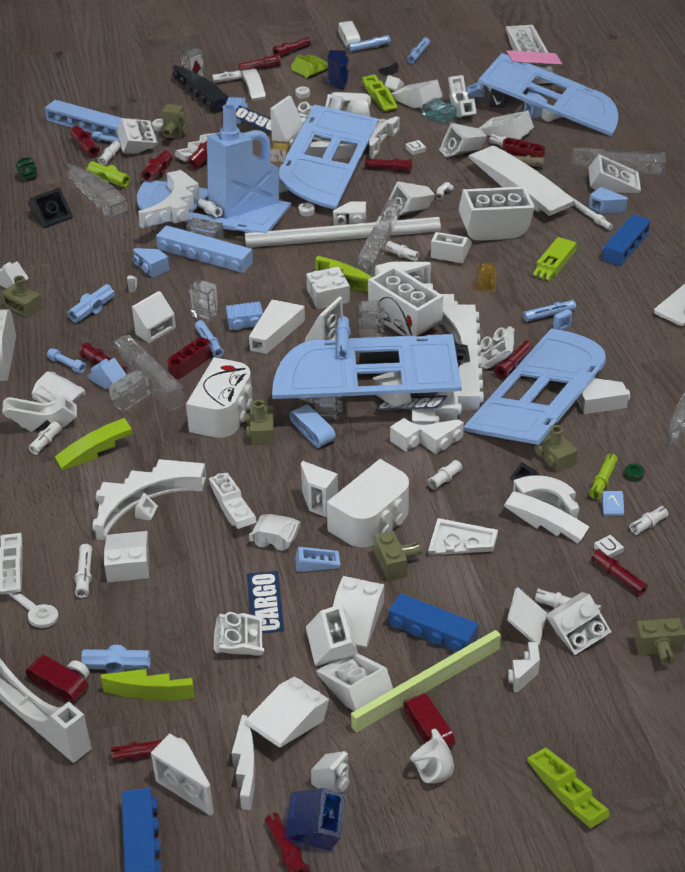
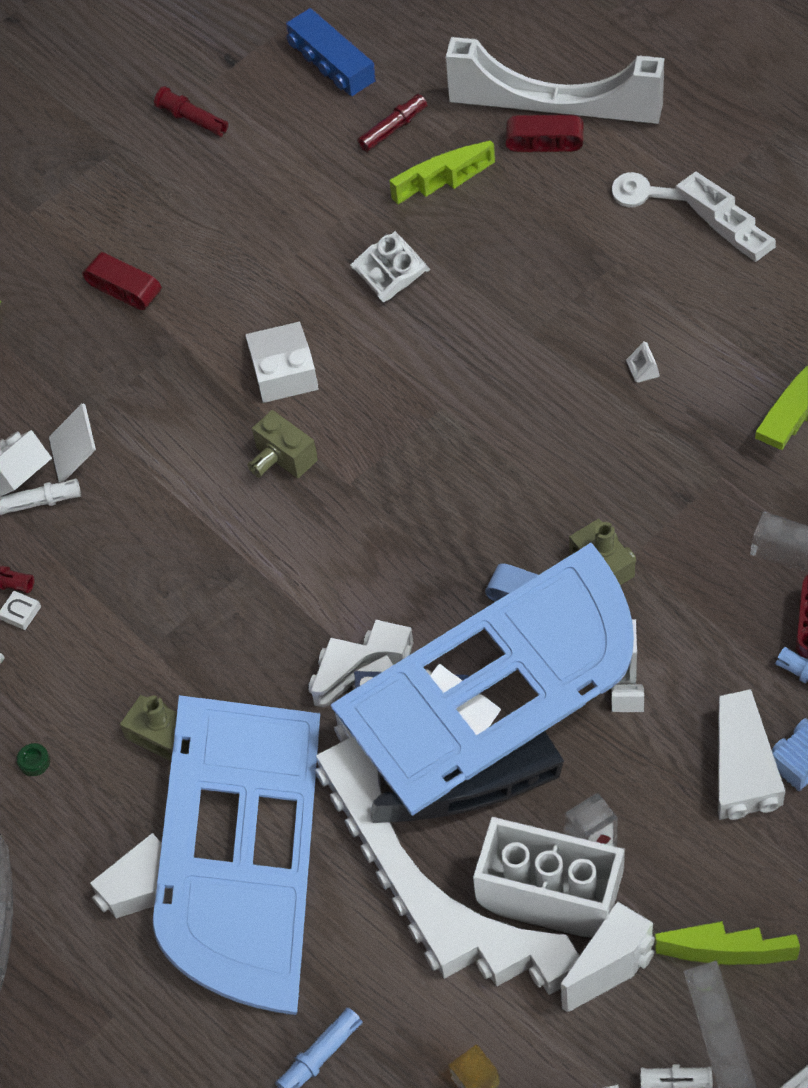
camera: 155 degrees right, 15 degrees up
(79, 668) = (530, 149): white tile -> none
(83, 576) = (617, 233): white pin -> none
(116, 659) = (502, 180): light blue piece -> none
(126, 556) = (606, 293): white slope -> none
(165, 478) = (656, 407): white arch -> none
(180, 773) = (325, 102): white slope -> none
(220, 399) = (686, 553): white brick -> none
(231, 501) = (540, 422): white slope -> none
(244, 761) = (284, 157): white slope -> none
(266, 600) = (402, 334): sticker -> none
(275, 530) = (455, 410): white slope -> none
(288, 712) = (268, 205): white slope -> none
(309, 559) = (377, 393): light blue slope -> none
(315, 817) = (173, 132): clear blue slope -> none
(318, 487) = (438, 476): white slope -> none
(327, 286) = (729, 885): white piece -> none
(327, 322) = (643, 761): white slope -> none
(331, 636) = (277, 305): white slope -> none
(331, 772) = (186, 176): white slope -> none
(343, 333) = (576, 707): light blue pin -> none
(356, 680) = (229, 284): white slope -> none
(369, 505) = (349, 487): white brick -> none
(425, 681) = (147, 324): yellowish green tile -> none
(432, 623) = (181, 387): blue brick -> none
(434, 760) = (87, 240): white piece -> none
(444, 474) = (294, 609): white pin -> none
(458, 538) = (222, 520): white wing -> none
(497, 348) = (351, 889): white slope -> none
(510, 363) = (319, 881): dark red pin -> none
(523, 471) = (185, 675): black slope -> none
(525, 670) = (45, 386): white slope -> none
(541, 513) = (120, 603): white slope -> none
(549, 491) = (137, 650): white arch -> none
(562, 320) = (282, 1031): light blue plate -> none
(601, 481) = (71, 709): lime pin -> none
(612, 503) = (41, 682): light blue slope -> none

